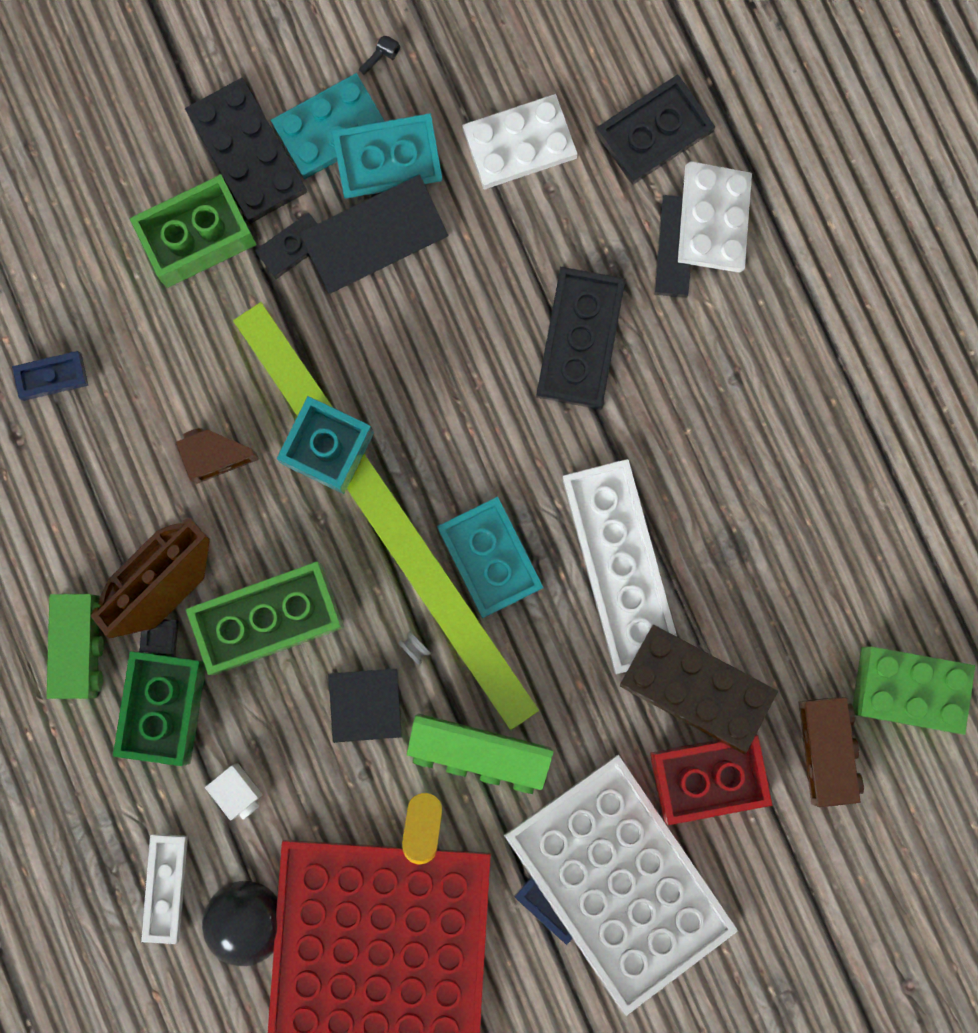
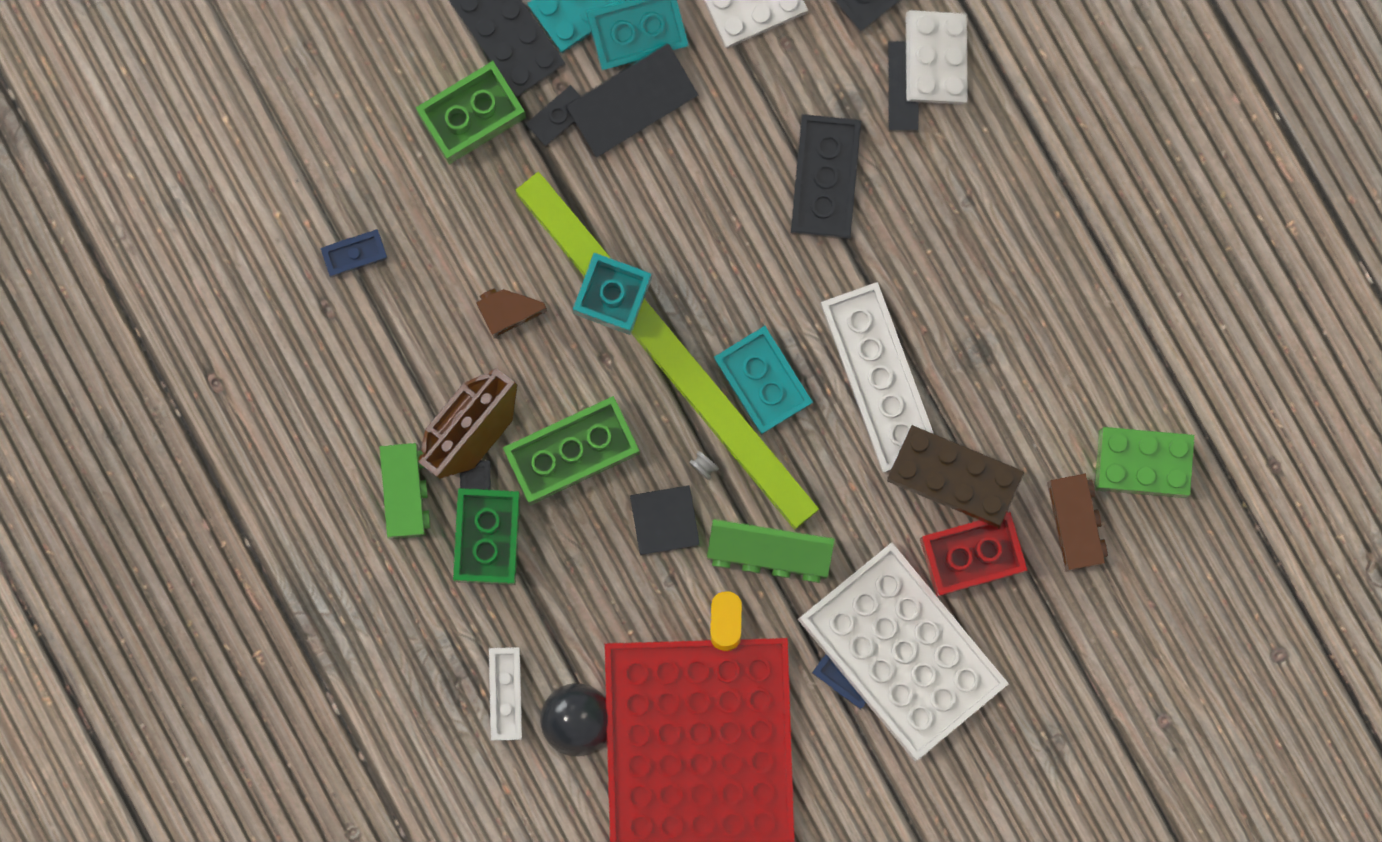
camera: 10 degrees left, 0 degrees up
(235, 792) = (559, 605): white brick -> none

